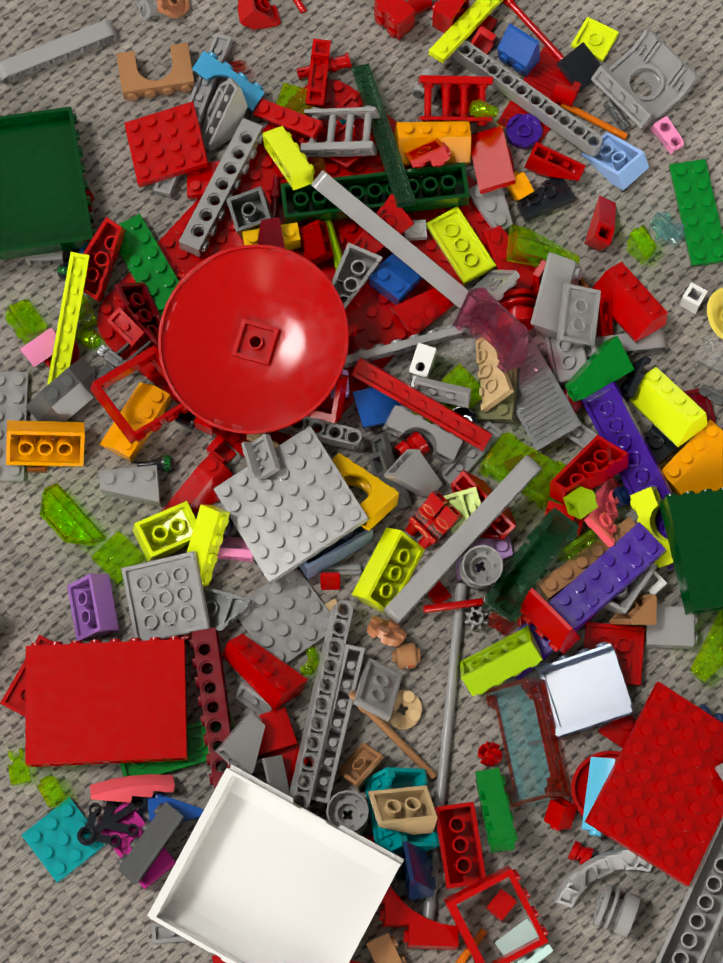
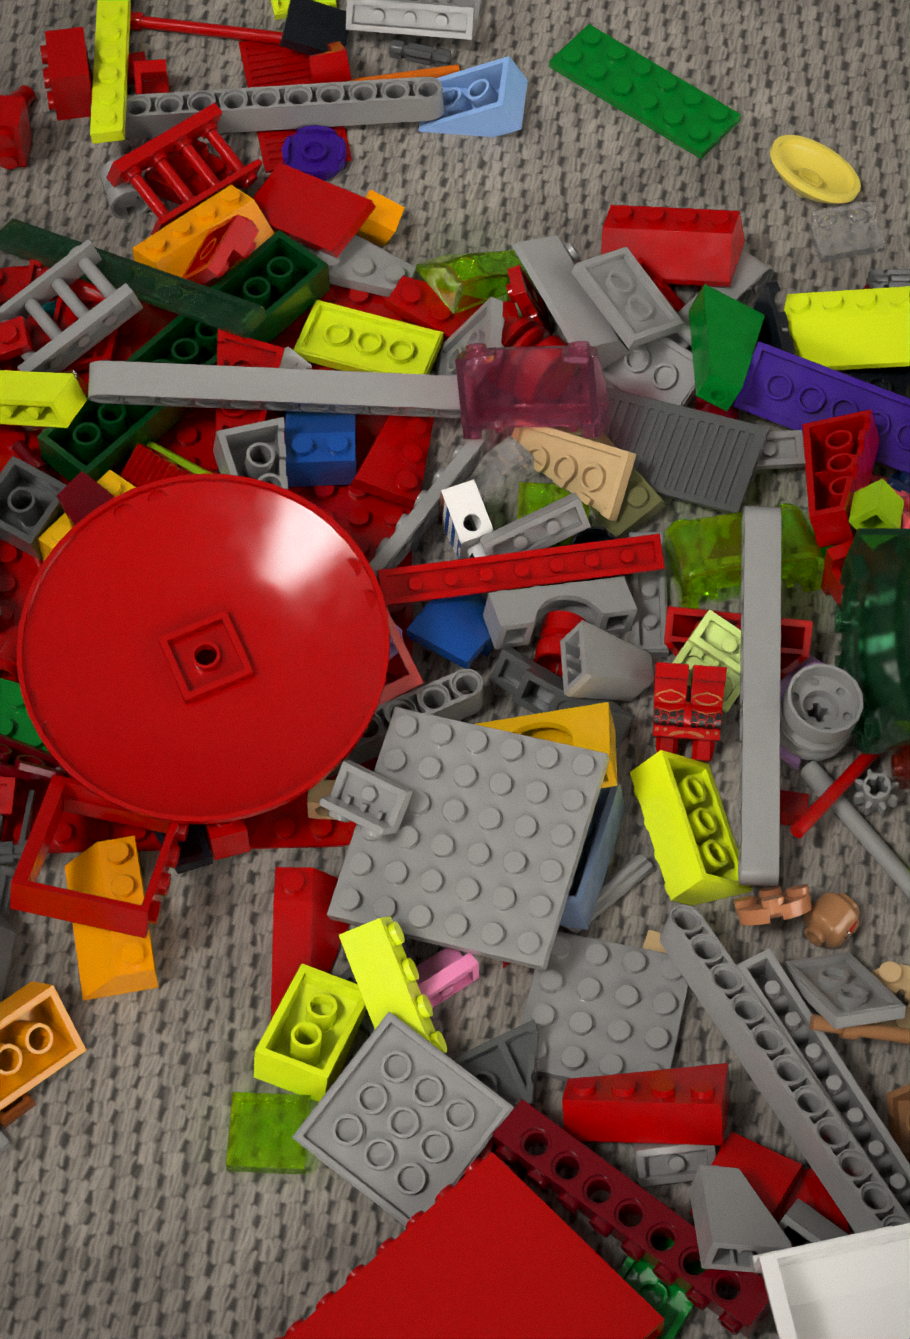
camera: 40 degrees left, 15 degrees down
(67, 518) = (141, 1133): clear neon green wedge -> none
(92, 607) = (296, 1235): medium lavender slope -> none
(132, 484) = (193, 1008): light grey wedge -> none
(164, 463) = (210, 946): black piece -> none
(220, 450) = (272, 858): red panel -> none
(312, 662) = (703, 1039): clear neon green arm -> none
(330, 580) = (619, 909): red slope -> none
(482, 109) = (236, 154): clear neon green cone -> none
(519, 50) = (213, 55): blue slope -> none
(548, 197) = (428, 205): black wing -> none
(553, 164) = (393, 160): red slope -> none
(601, 225) = (539, 189): red slope -> none
(641, 244) = (614, 171): clear neon green slope -> none
(666, 229) = (624, 133): clear light blue hips -> none
(667, 135) = (512, 28): bright pink leg -> none
(693, 298) = (747, 184): white brick -> none

